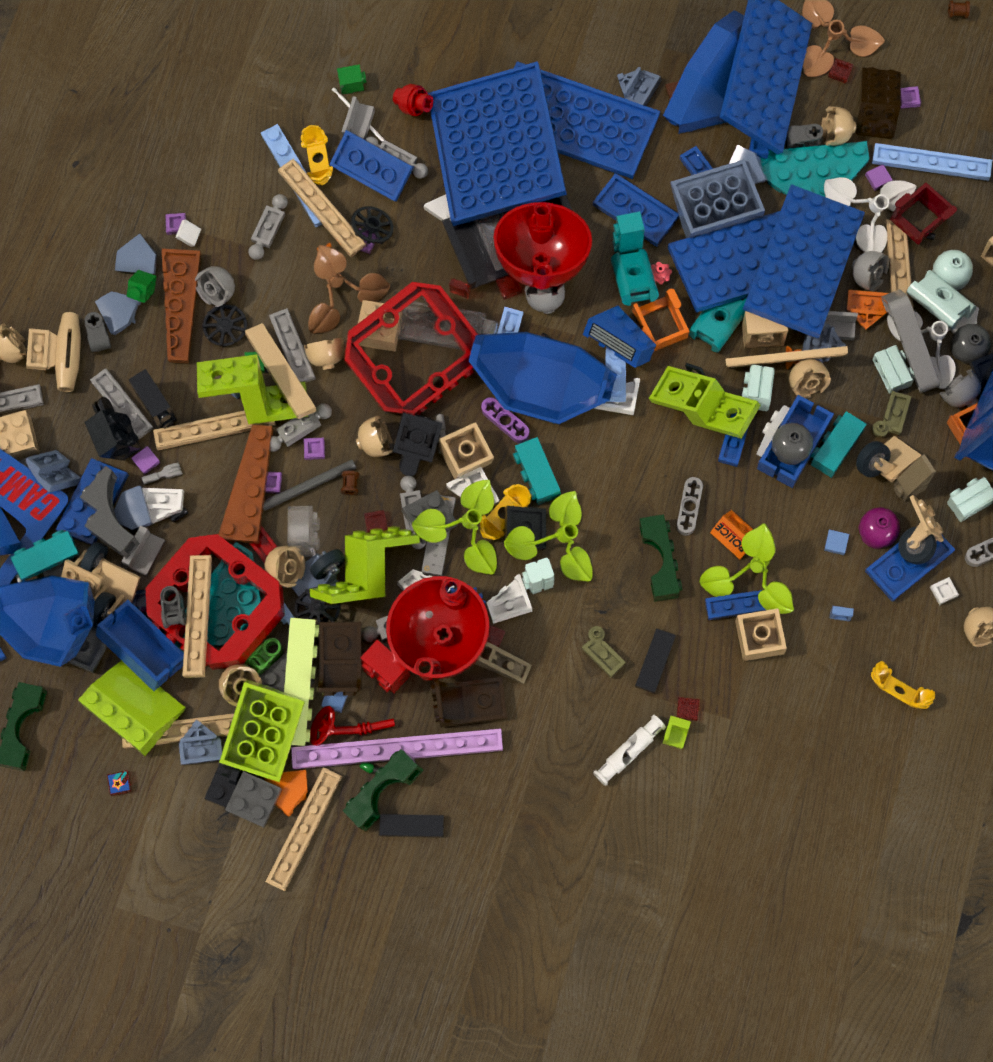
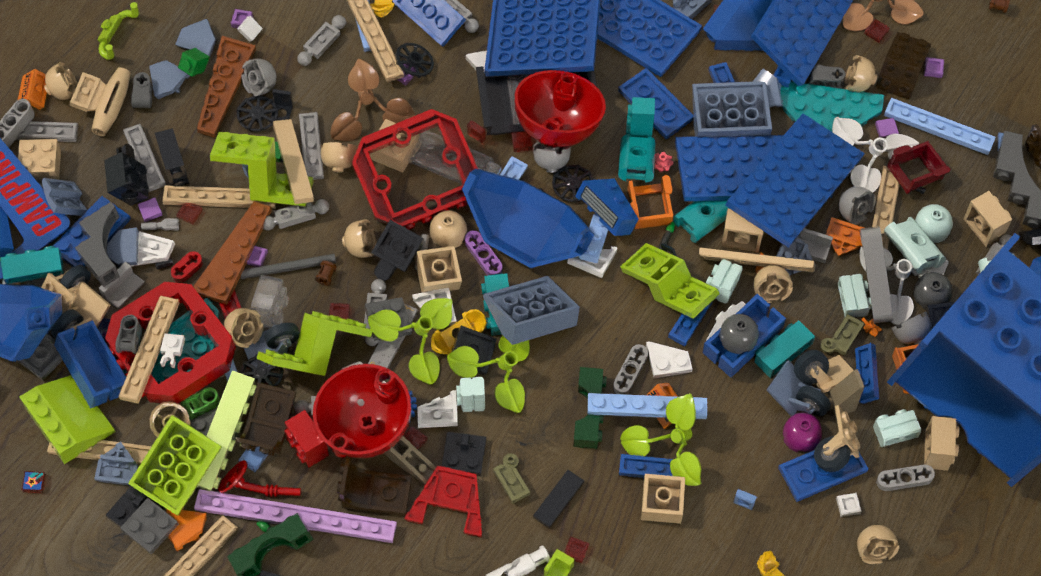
camera: 10 degrees right, 10 degrees down
(39, 270) = (110, 27): none -> lime piece
(187, 452) = (189, 212): none -> clear red tile
(200, 510) = (186, 267): none -> red beam
(220, 608) = (171, 347): none -> white plate
(249, 305) = (283, 101): none -> black bracket
(314, 448) = (303, 236): medium lavender tile -> none
(461, 403) = (448, 229): none -> tan cylinder
(547, 638) = (464, 452): none -> black hinge
(547, 681) = (453, 491): none -> red wing
(573, 319) = (572, 182): none -> black wheel
(573, 469) = (531, 309): none -> sand blue slope
(686, 352) = (667, 235): none -> pearl dark grey piece
(710, 544) = (637, 405): none -> light blue plate
(724, 486) = (667, 360): none -> white wing
(836, 542) = (758, 435): medium blue tile -> none
(864, 491) = (796, 395): none -> sand blue plate
(919, 398) = (871, 327): none -> orange plant
(927, 444) = (867, 367): none -> blue plate

